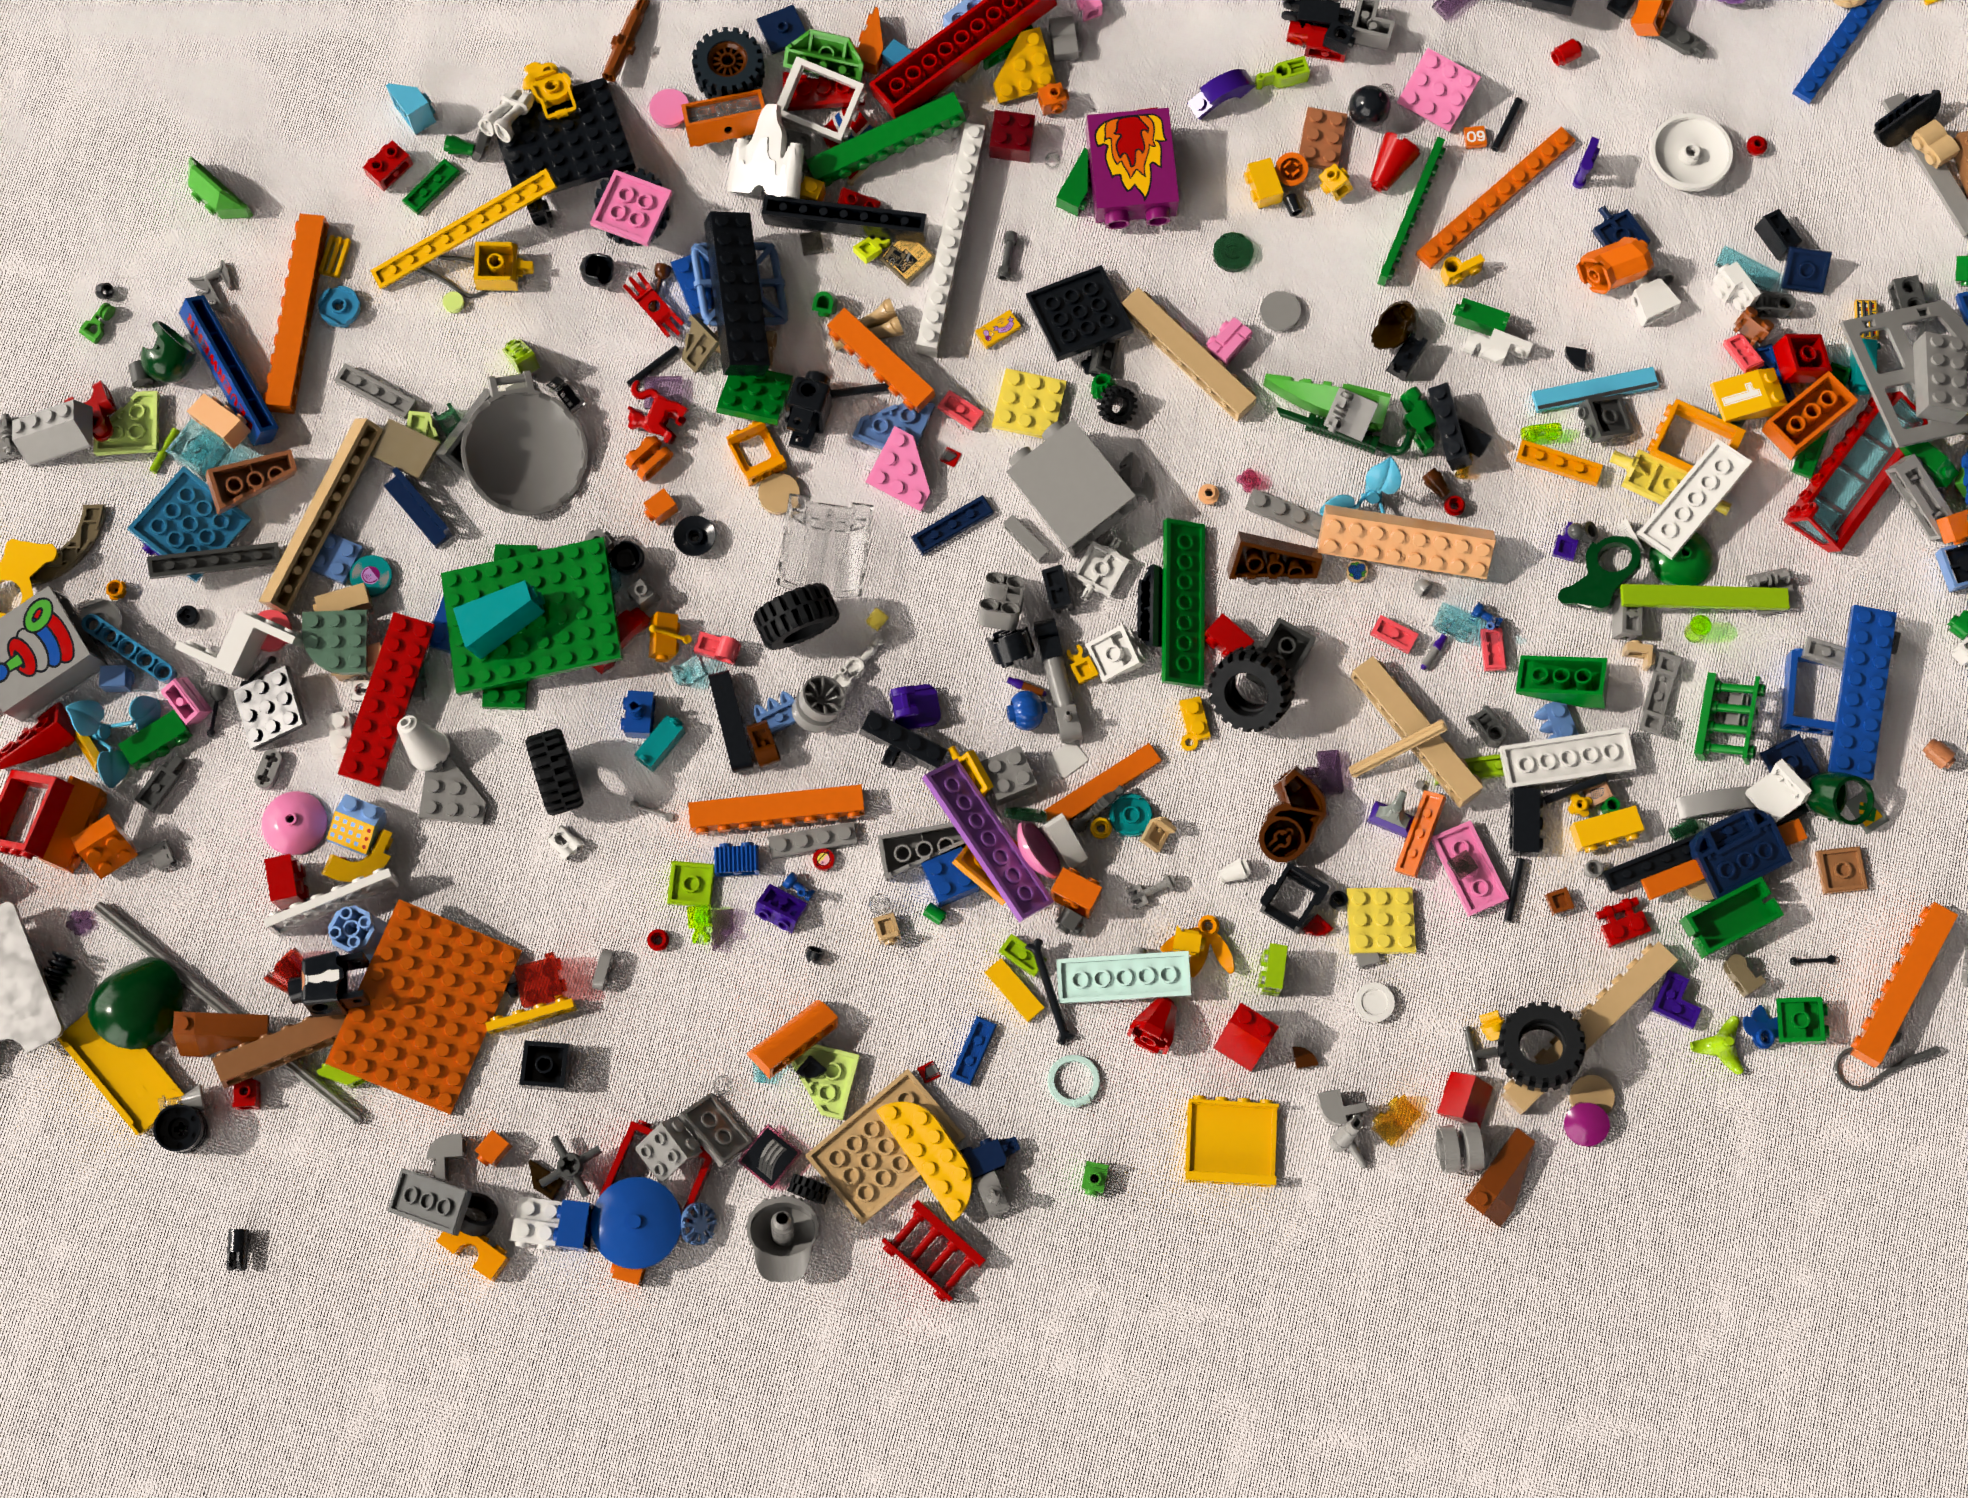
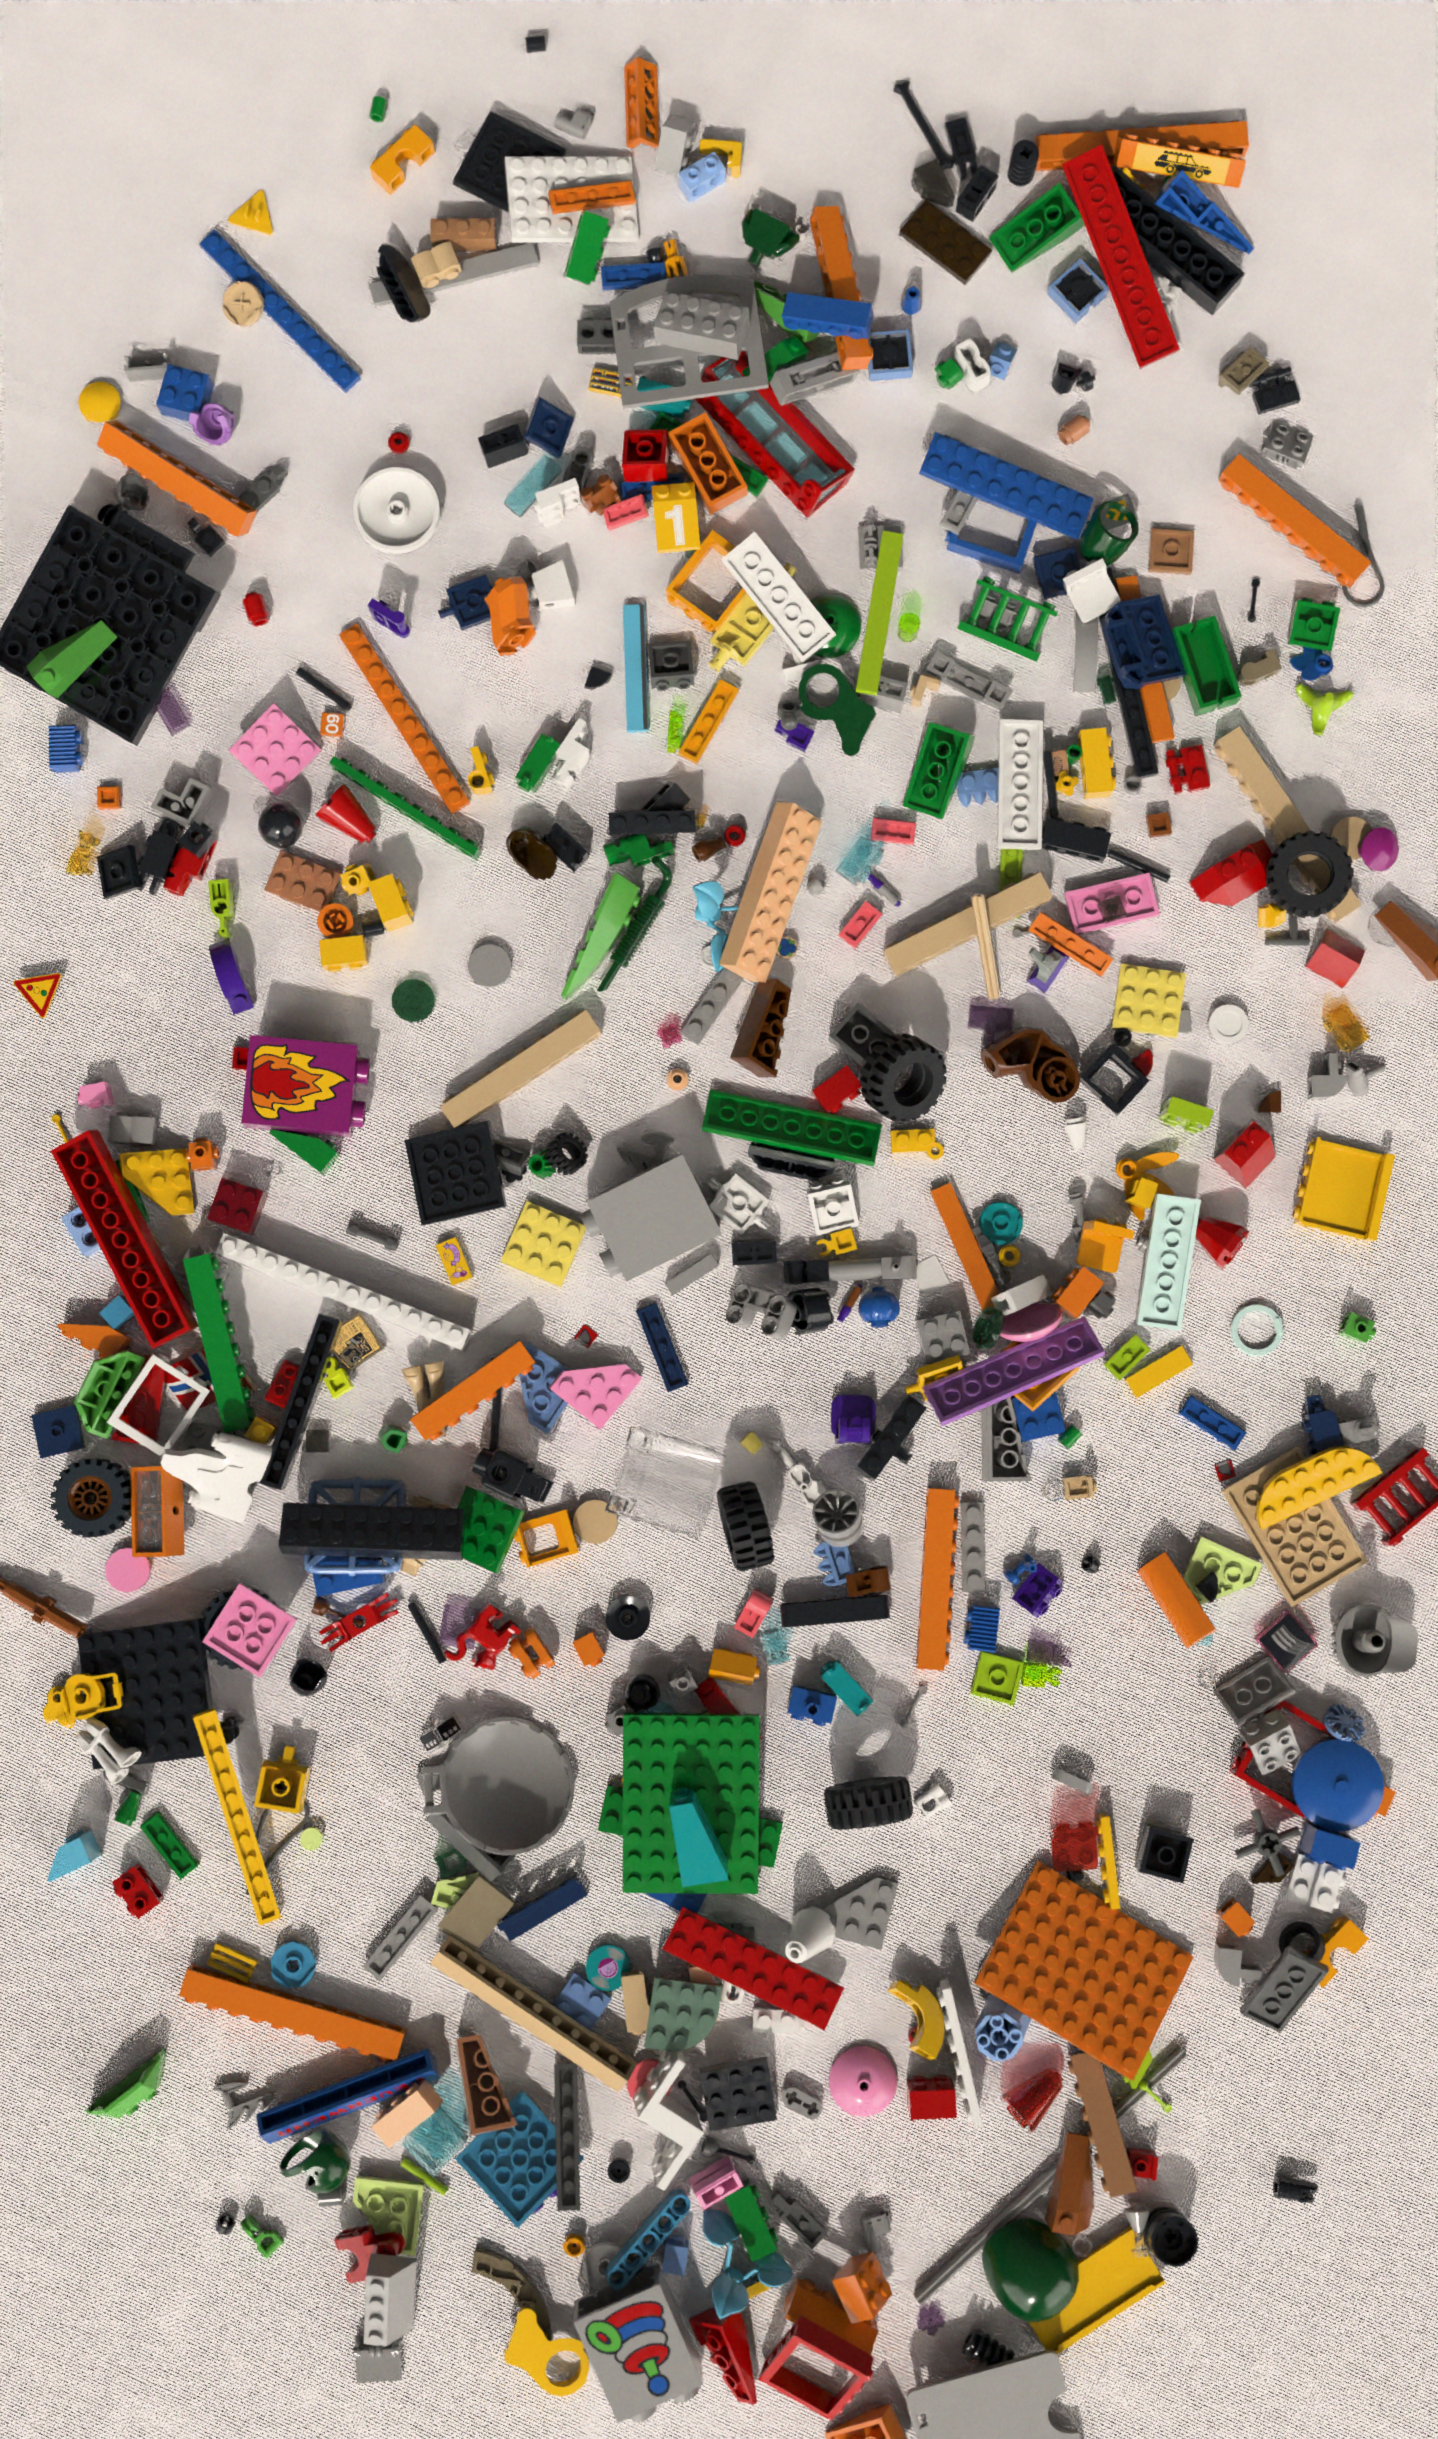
camera: 80 degrees left, 10 degrees up
(303, 1112) = (1165, 2106): none -> lime hinge
(325, 986) = (1054, 2070): black piece -> none
(356, 825) = (881, 2017): slope -> none
(521, 356) = (392, 1774): lime slope -> none
(653, 935) = (1056, 1722): red plate -> none
(686, 639) = (741, 1644): yellow hinge -> none
(699, 344) = (415, 1580): dark tan wing -> none
(809, 1189) = (1328, 1608): black tyre -> none
(823, 859) = (994, 1539): red tile -> none
(960, 410) = (538, 1316): coral plate -> none
(1064, 1034) = (1210, 1330): black piece -> none
(1127, 912) = (1102, 1244): none -> light orange bracket
(1157, 833) = (1026, 1201): tan bracket -> none
(1229, 341) = (516, 1025): bright pink brick -> none
(1319, 211) = (389, 900): none -> yellow brick
(1350, 414) = (626, 918): light grey hinge -> none
(1465, 1145) = (1387, 973): light grey wheel -> none
(1486, 722) = (968, 856): dark grey piece -> none
(1492, 621) = (865, 823): blue piece -> none
(1524, 981) = (1234, 876): none -> red wedge
(1670, 1003) = (1276, 743): dark purple plate -> none

